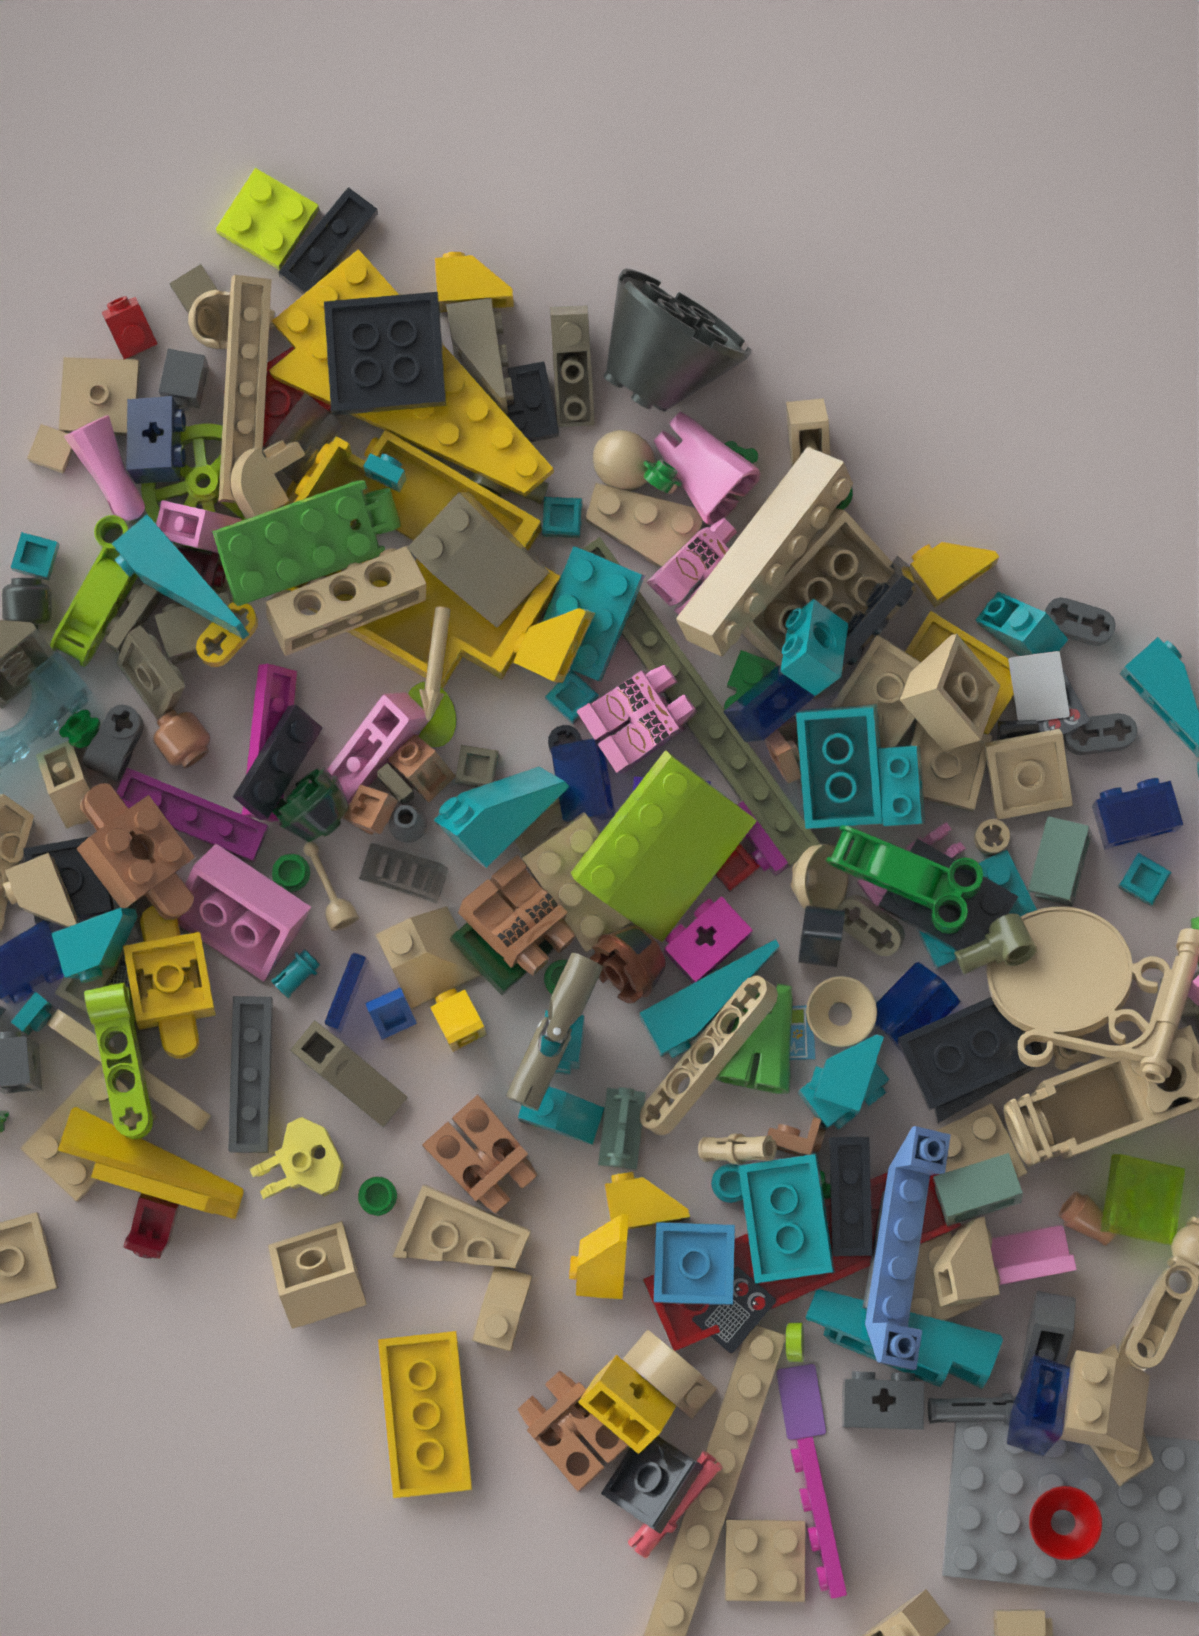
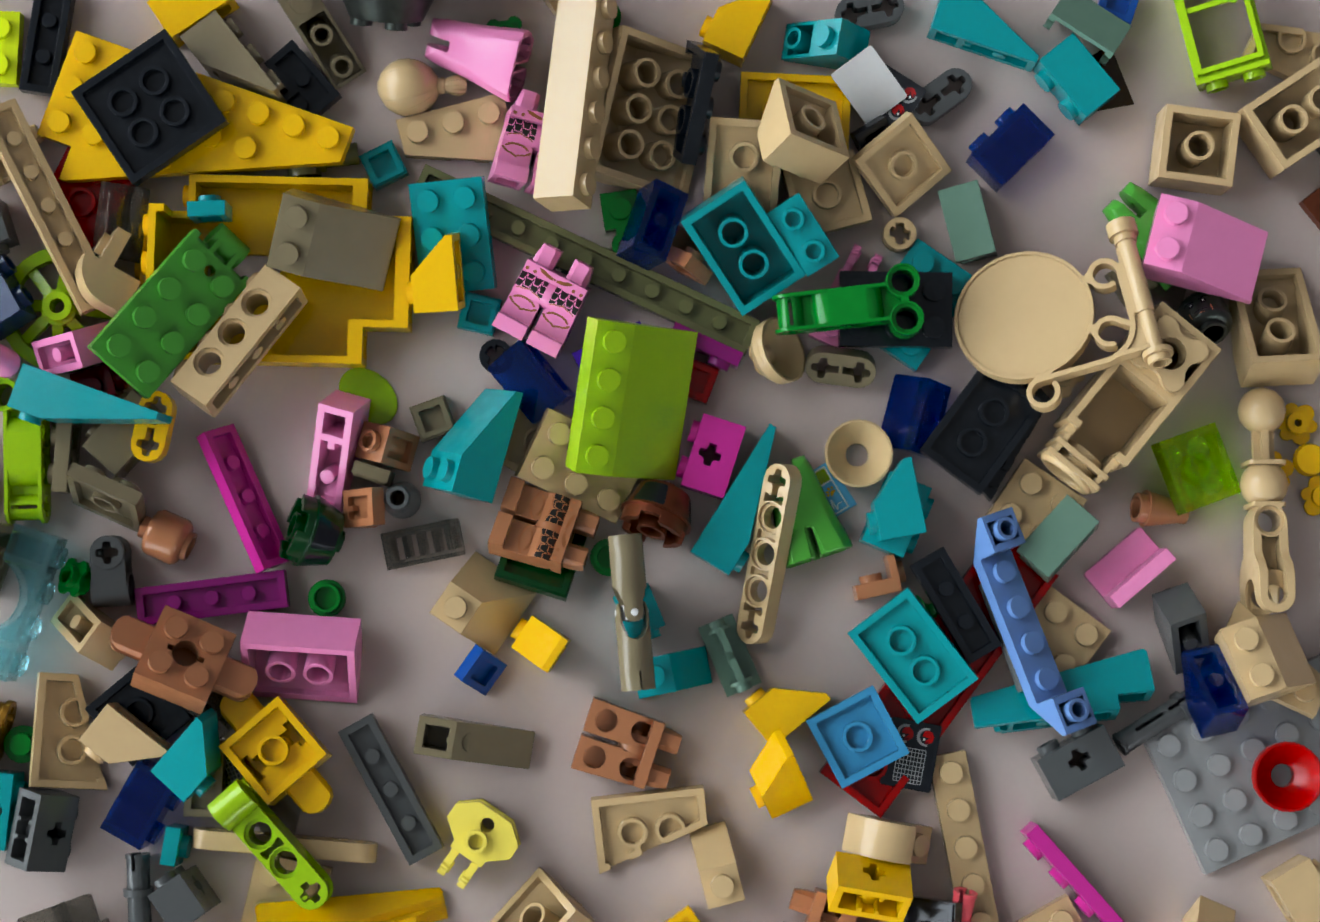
camera: 35 degrees left, 5 degrees up
(277, 762) = (261, 512): black plate -> none
(296, 973) = (380, 680): teal pin -> none
(339, 912) = (386, 608): tan hinge -> none
(346, 992) = (432, 673): clear blue tile -> none
(377, 1196) = (557, 829): green plate -> none
(431, 695) = (360, 381): tan piece -> none
(661, 475) = (448, 82): green plate -> none
(727, 1183) = (844, 651): teal plate -> none
(737, 1148) = (837, 618): tan pin -> none
(795, 1342) = (975, 752): lime tile -> none
(801, 1401) = (1006, 796): medium lavender sticker -> none
(814, 647) = (664, 156): teal brick -> none
(821, 936) = (806, 399): black beam -> none
(966, 1266) = (1084, 608): tan slope -> none
(1006, 942) = (965, 317): olive pin -> none
(1144, 879) = (1044, 198): teal tile -> none

